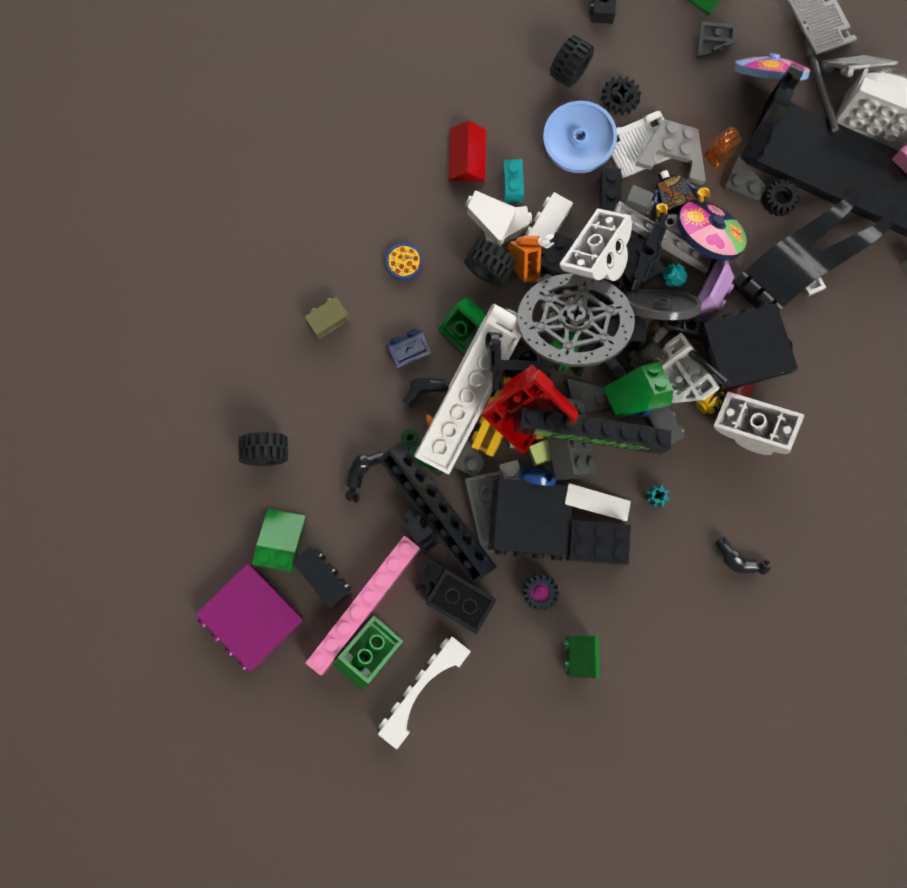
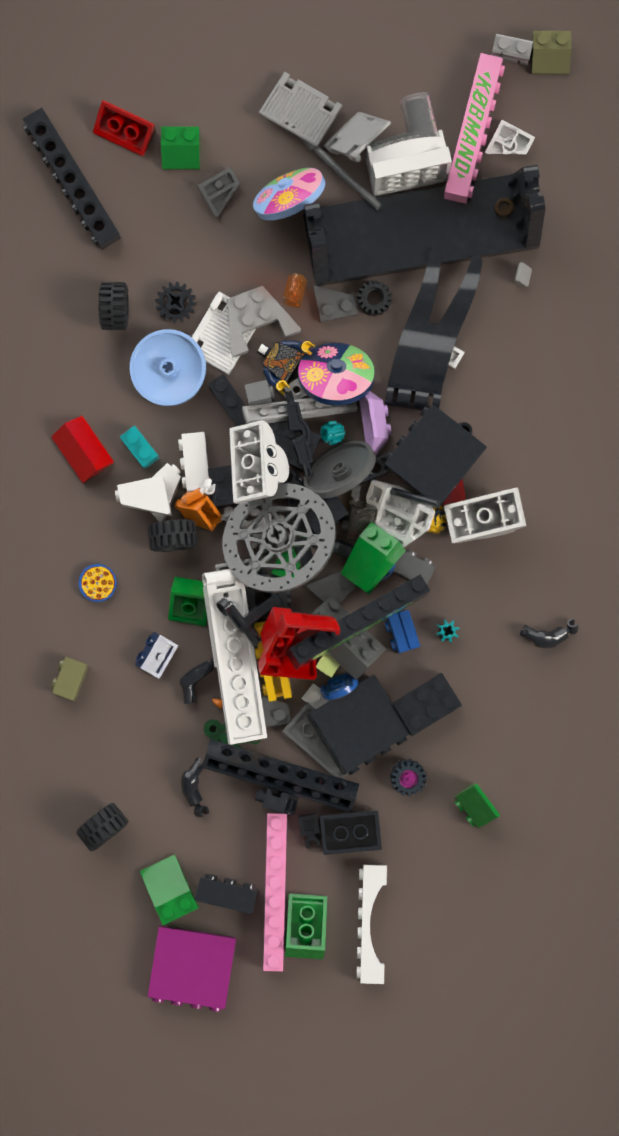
camera: 30 degrees left, 5 degrees up
(597, 502) = (403, 671): white sticker -> none
(620, 470) = (402, 631): none -> blue brick

